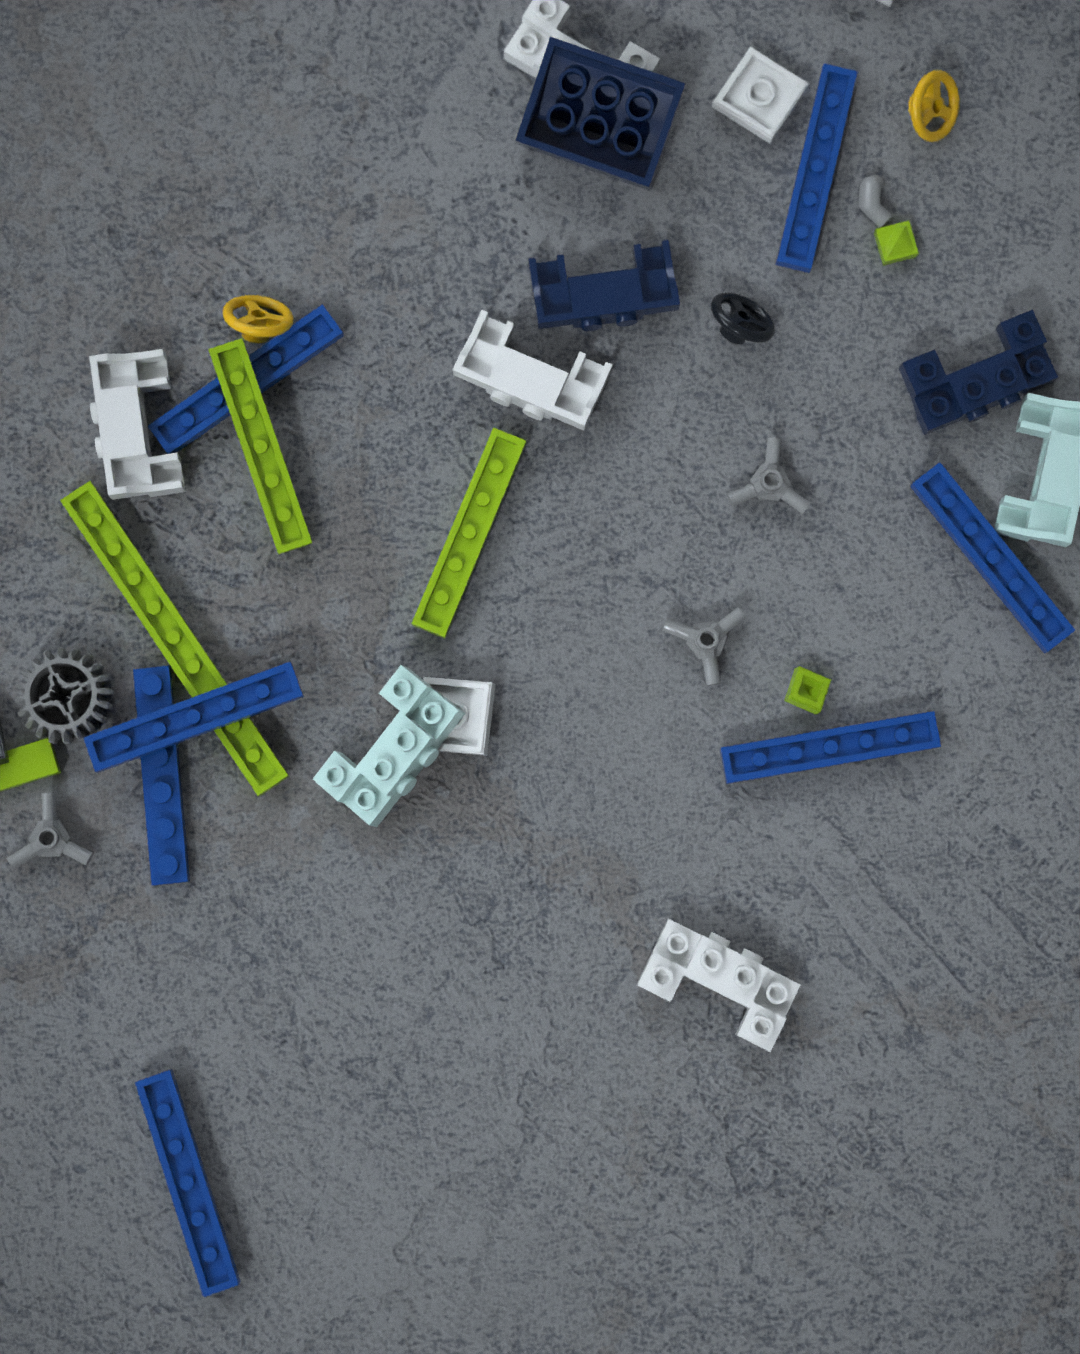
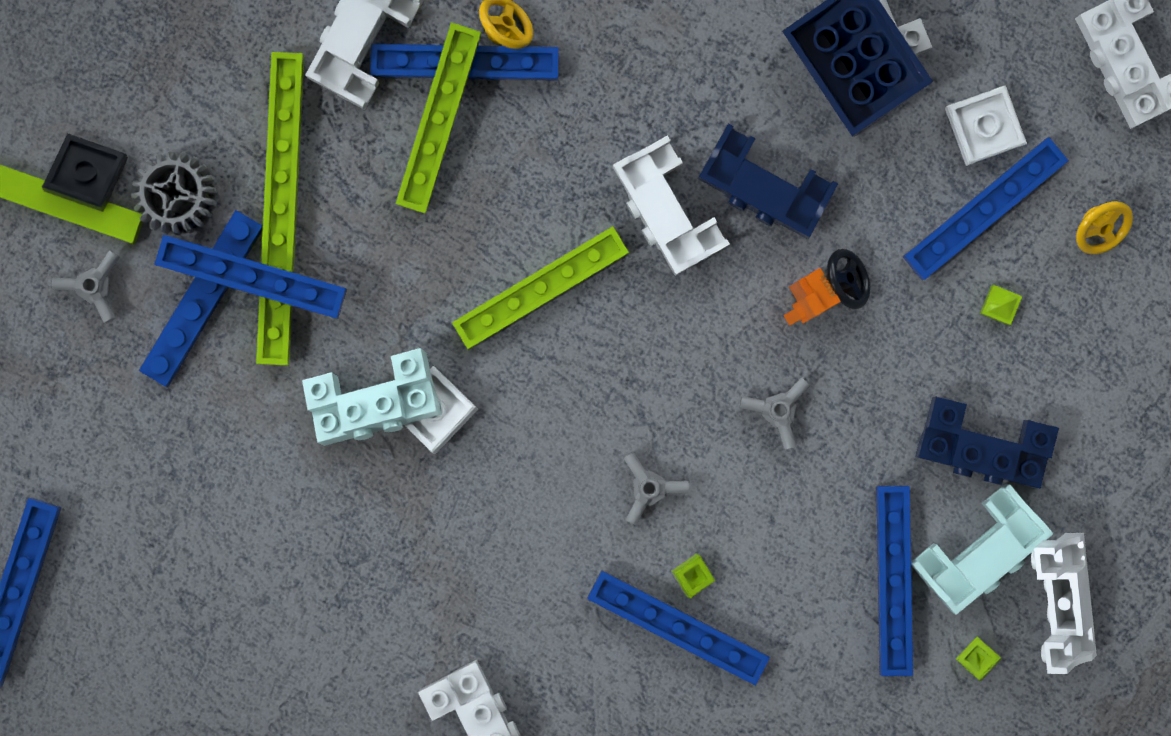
camera: 35 degrees right, 5 degrees up
(722, 357) = (812, 297): none -> orange piece
(870, 200) = (1006, 260): light grey arm -> none

